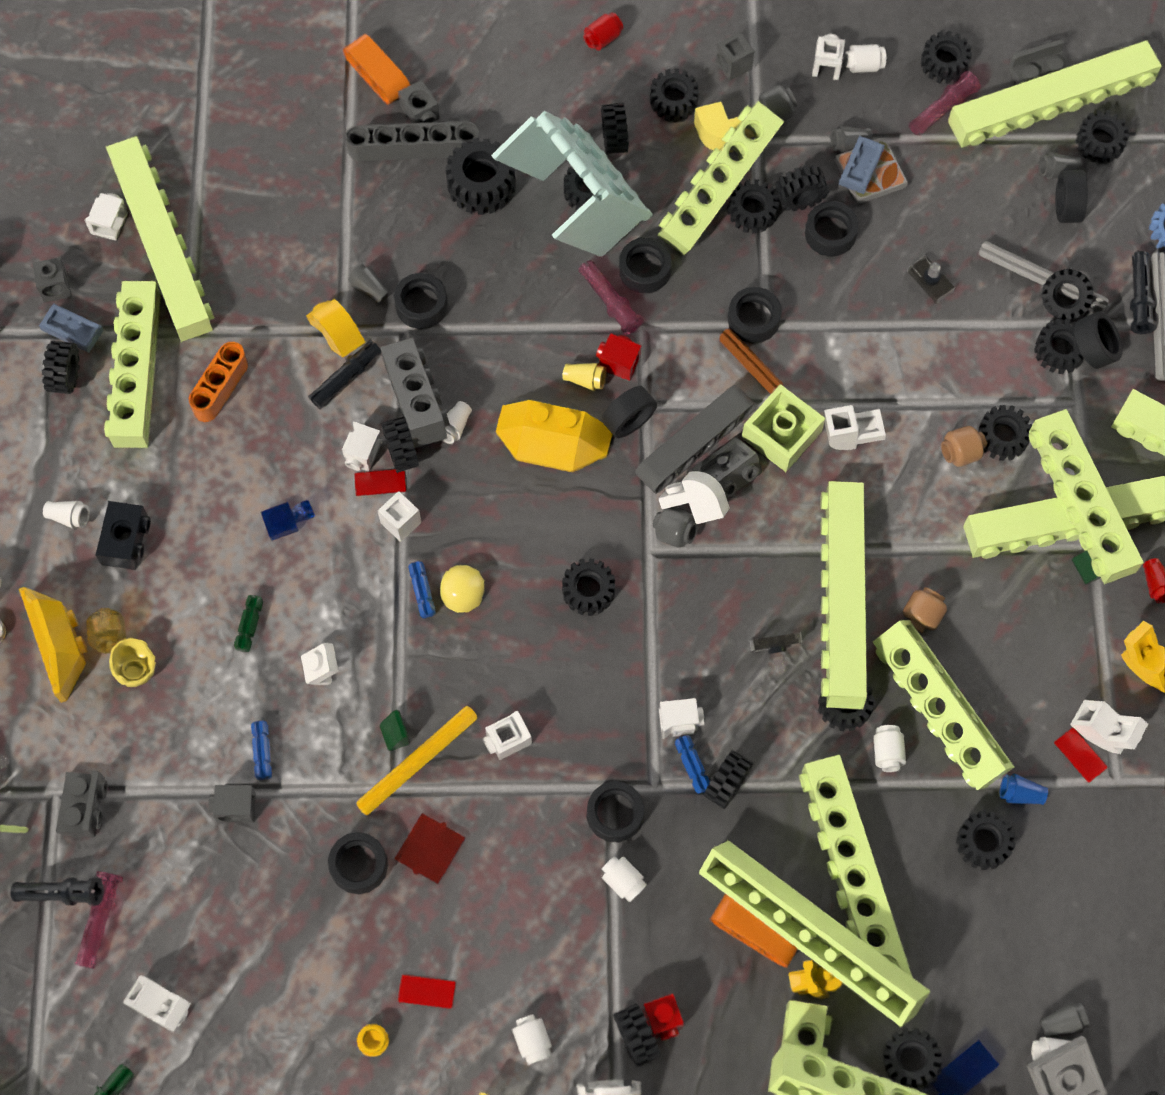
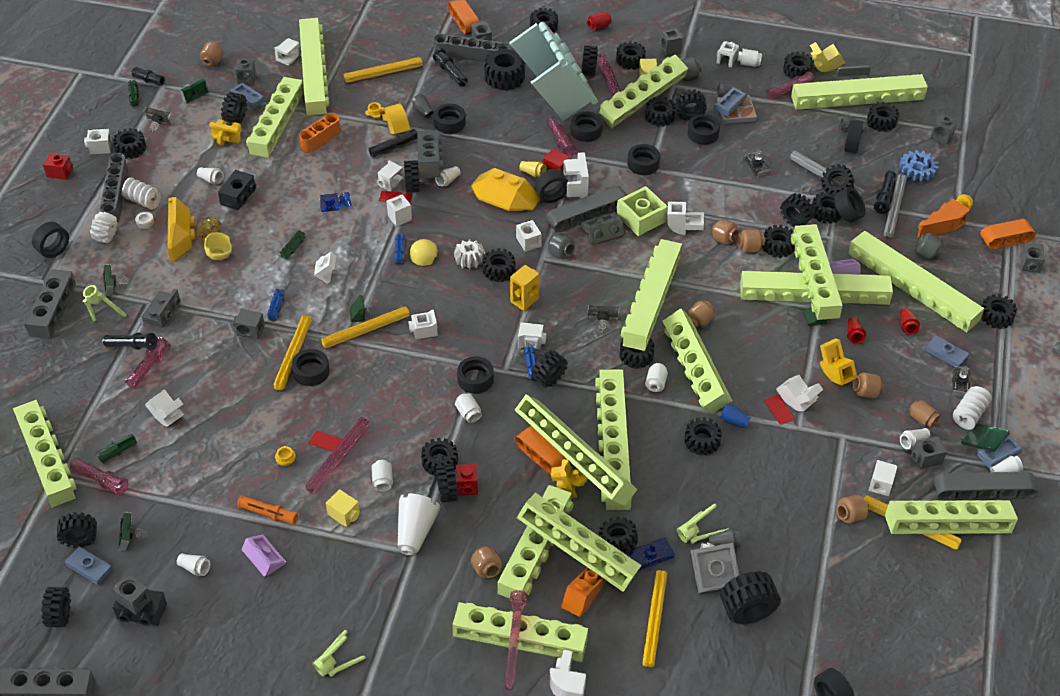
camera: 15 degrees right, 20 degrees down
(61, 421) = (223, 132): none -> yellow hips
(278, 217) = (383, 69): none -> yellow axle
(289, 303) = (374, 110): none -> yellow plate
(319, 839) = (294, 348): none -> yellow axle
(379, 181) = (446, 63): none -> black pin
(429, 848) = (356, 372): clear red piece -> none
(451, 1017) = (336, 456): none -> clear pink axle
(512, 38) = (549, 17): none -> black tyre
(529, 570) = (469, 254): none -> white gear
(607, 962) = (438, 447): none -> black tyre
(618, 528) = (528, 235): none -> white brick
(646, 631) = (524, 287): none -> yellow brick
(654, 151) = (608, 74): none -> clear pink axle
(665, 385) = (577, 167): none -> white panel
(701, 492) = (581, 230): white brick -> none
(750, 360) = (631, 176): dark orange axle -> none
(920, 436) = (725, 232): none -> medium nougat head
(988, 34) = (828, 59): none -> light yellow brick
(1010, 1019) = (689, 530): none -> yellowish green plant
(1021, 370) = (802, 205): none -> black tyre
(1115, 460) = (847, 266): none -> lavender slope

